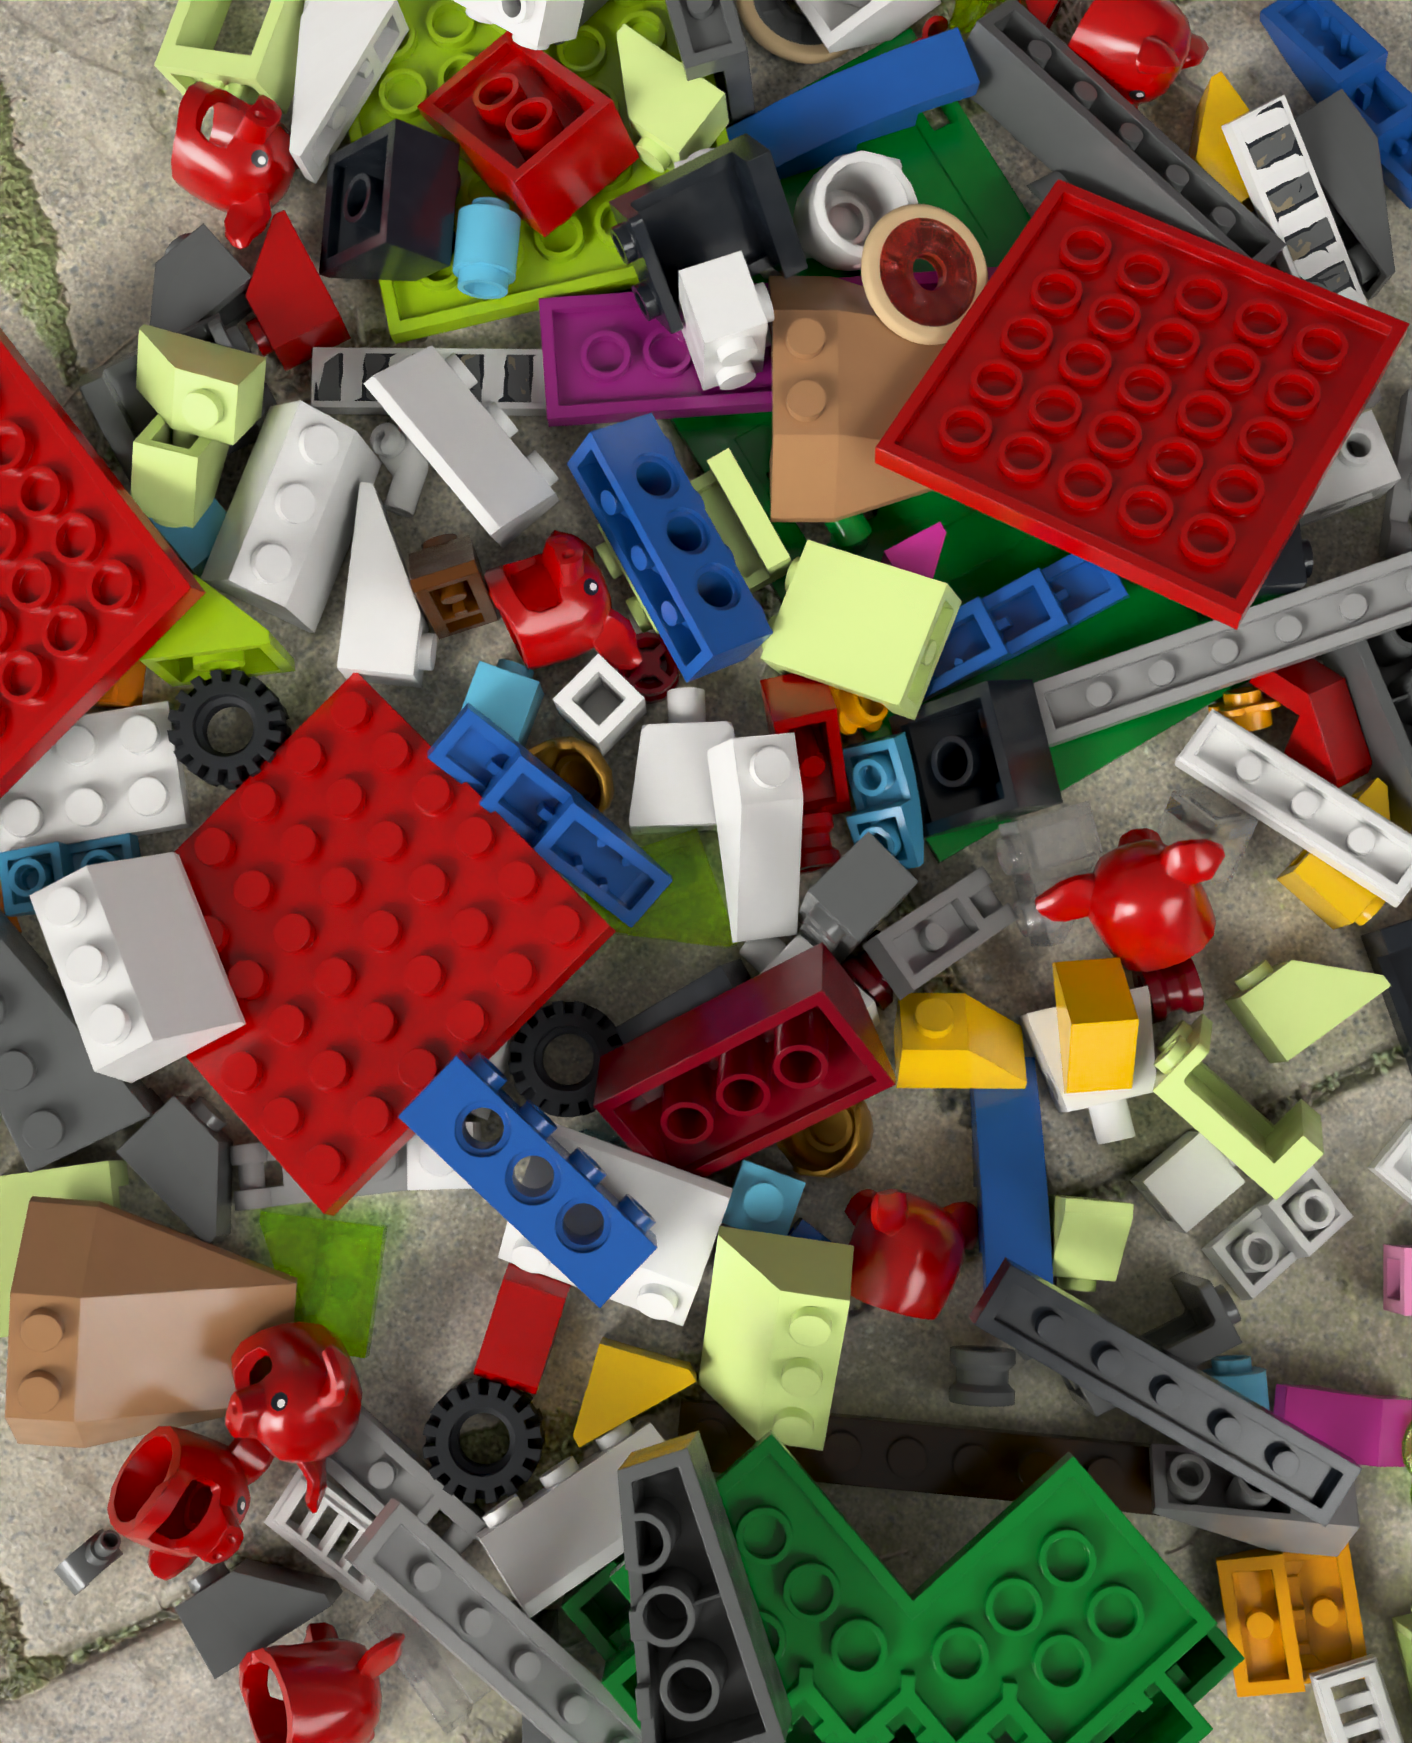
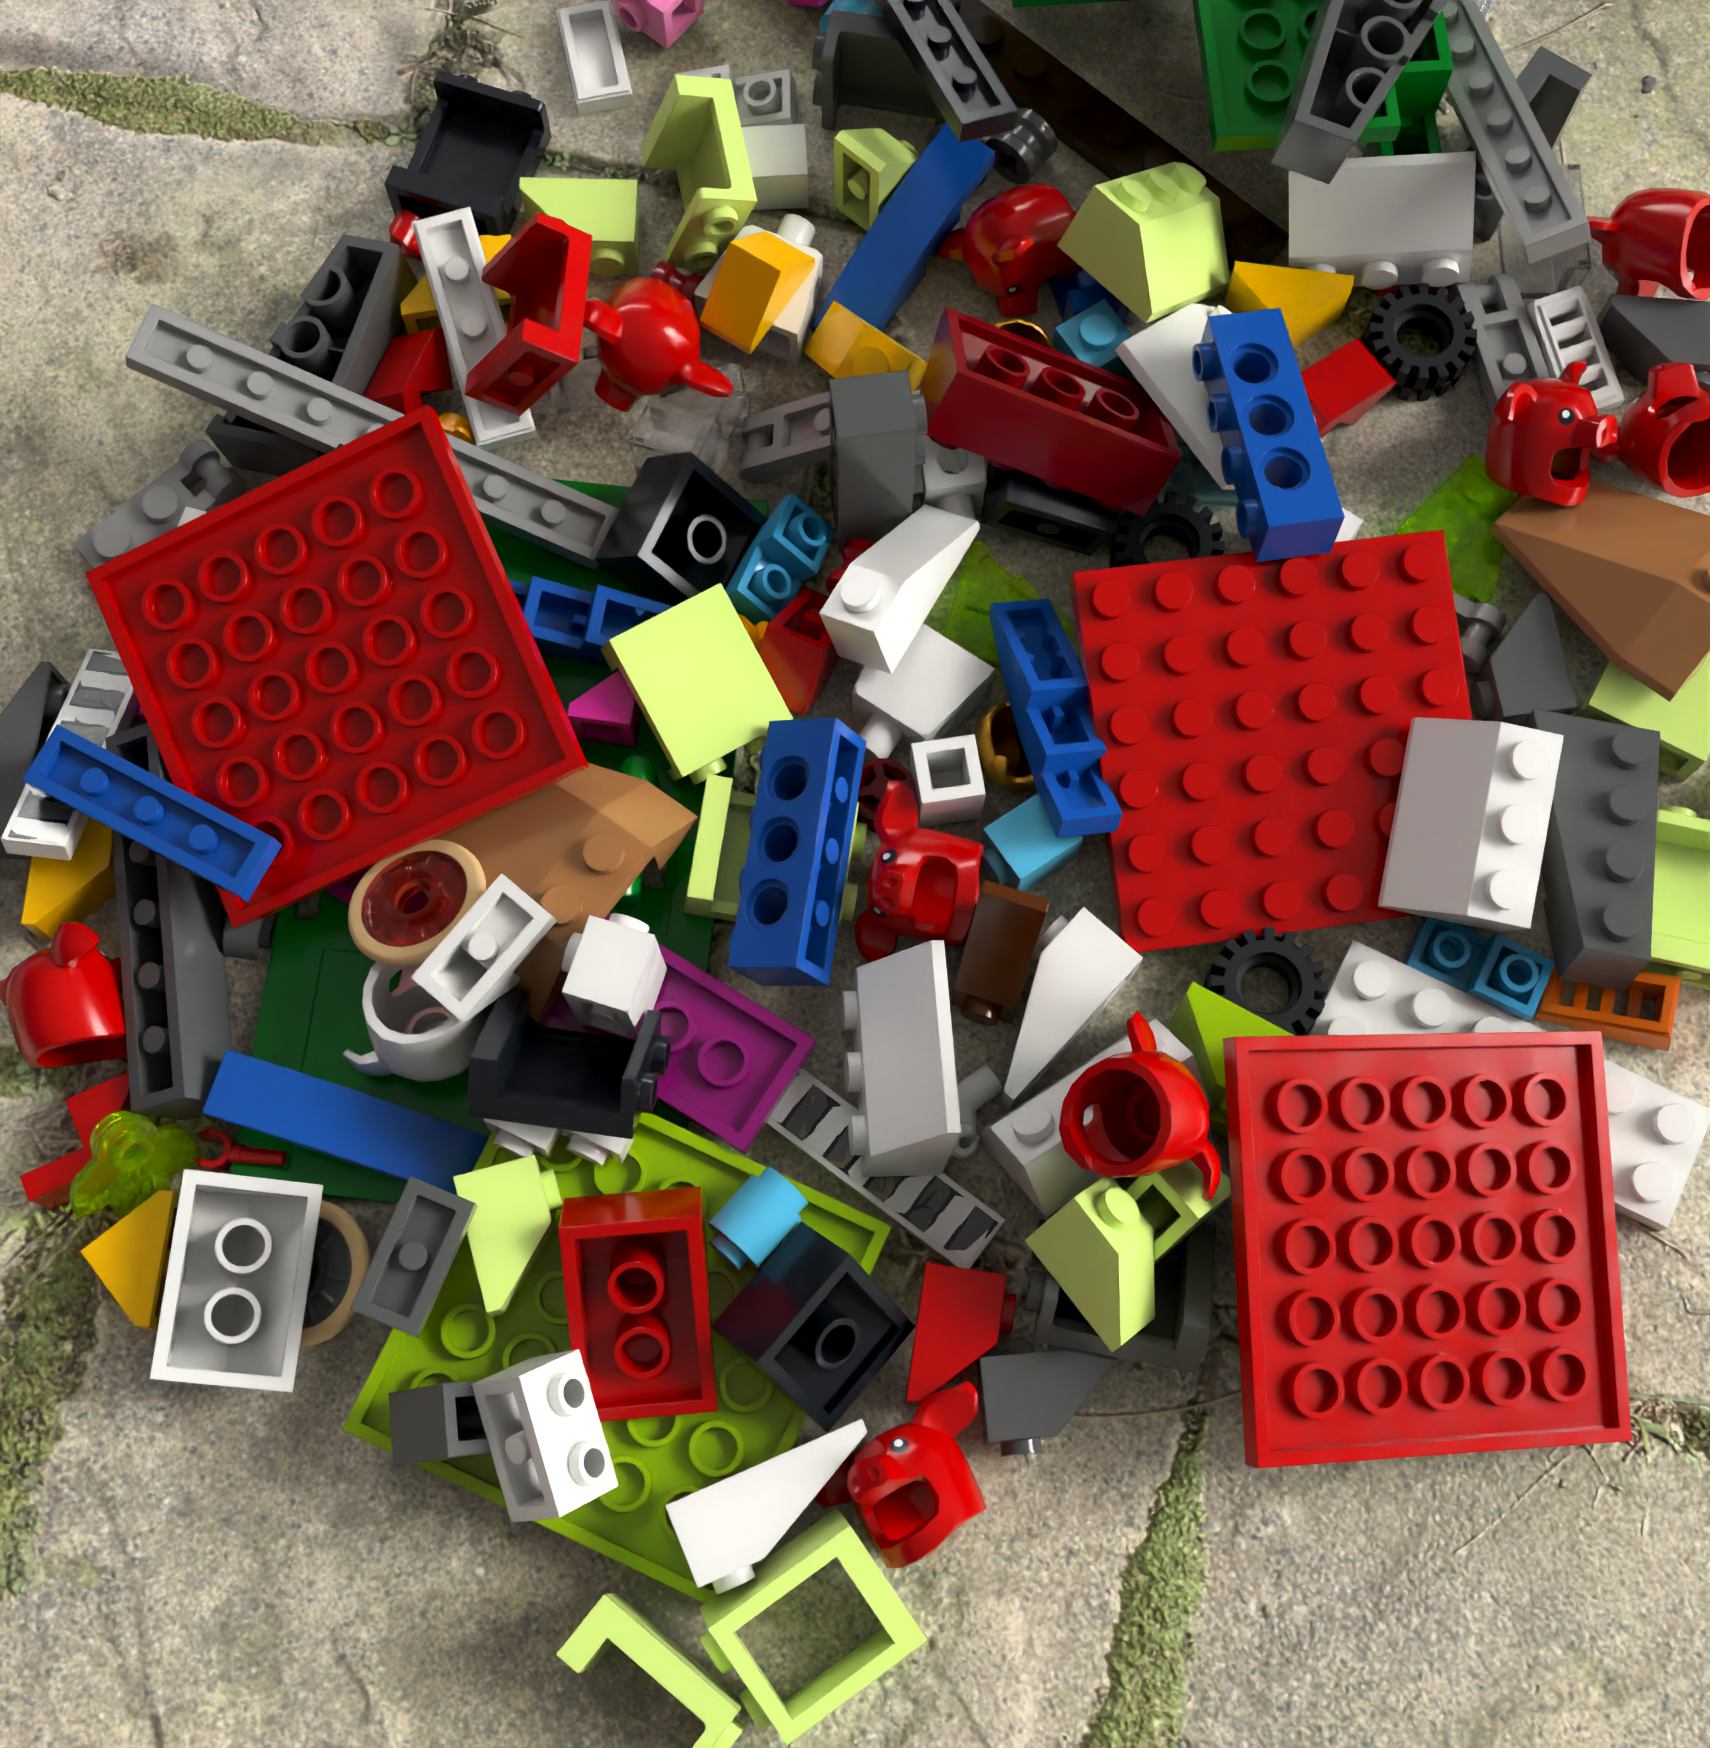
camera: 145 degrees left, 10 degrees down
(226, 483) = (1144, 1114): none -> red piece
(834, 255) = (484, 949): none -> white slope
(1185, 188) = (152, 812): none -> blue plate
(1241, 831) = (547, 281): none -> red panel

